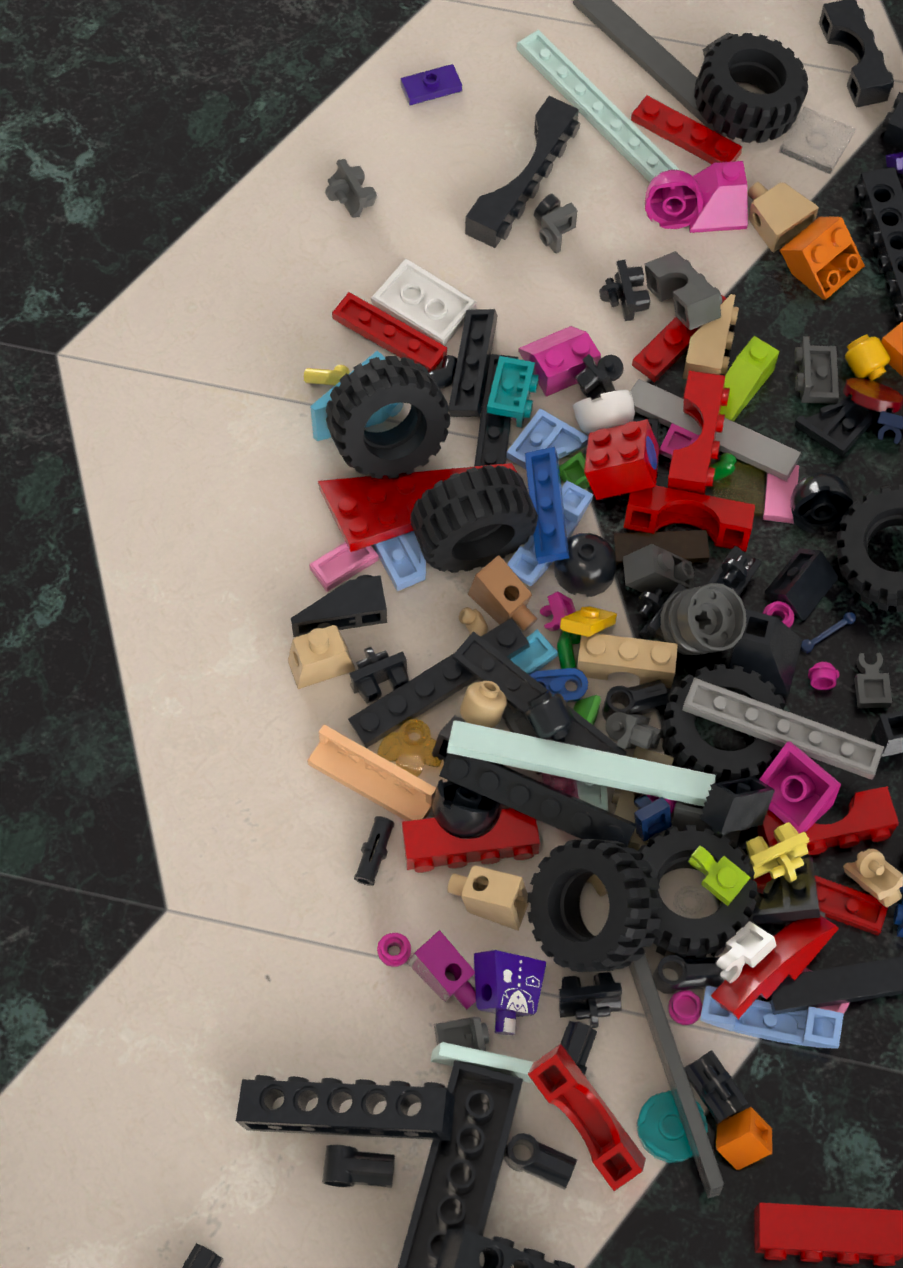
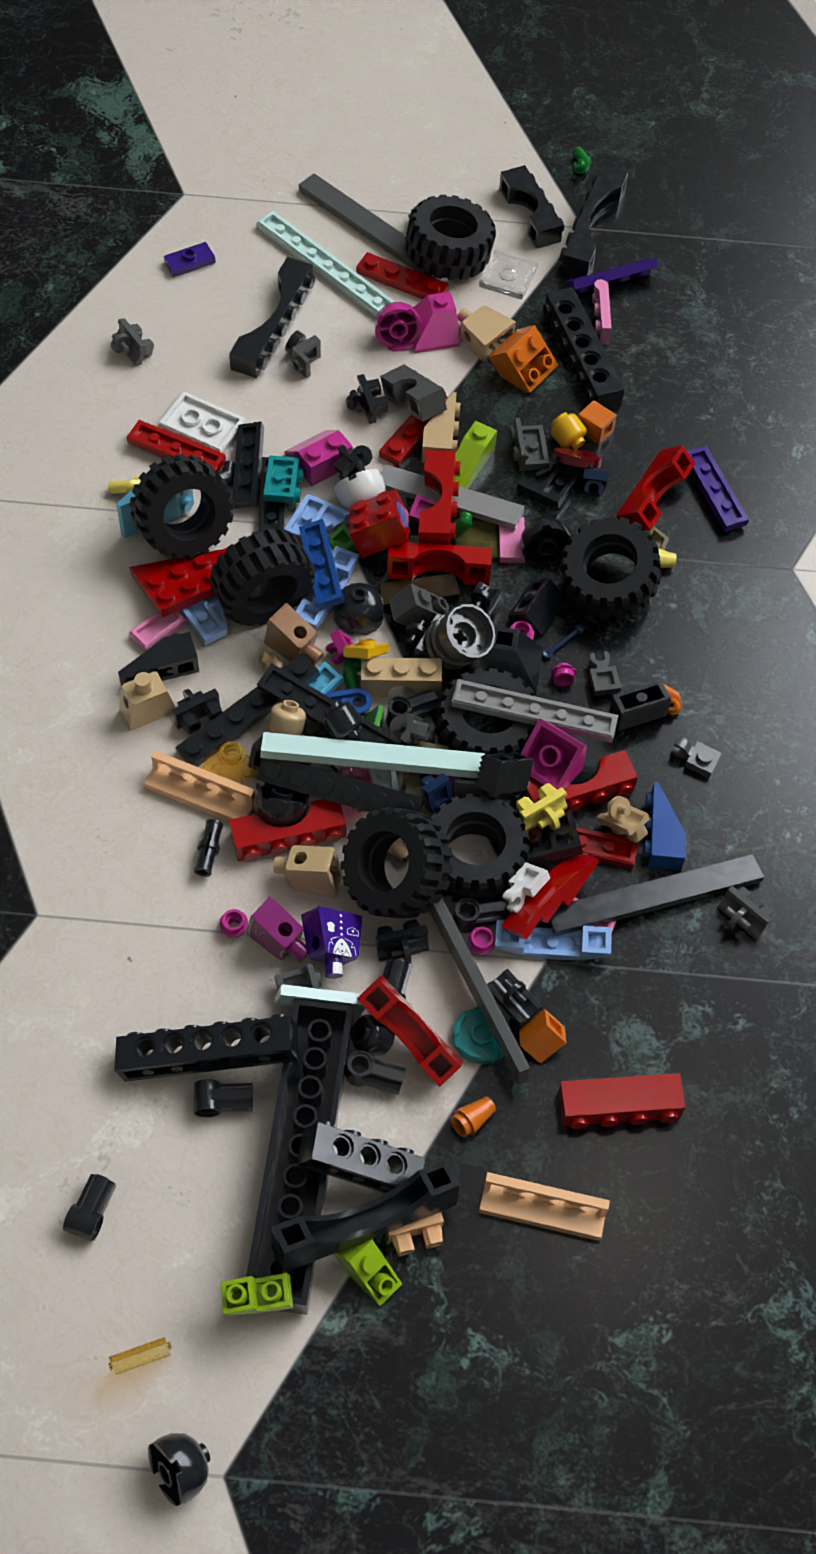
camera: 10 degrees left, 5 degrees down
(539, 1117) = (371, 1036): none -> black head
(648, 1229) = (472, 1116): none -> orange cone
(721, 878) = (498, 829): lime plate -> none

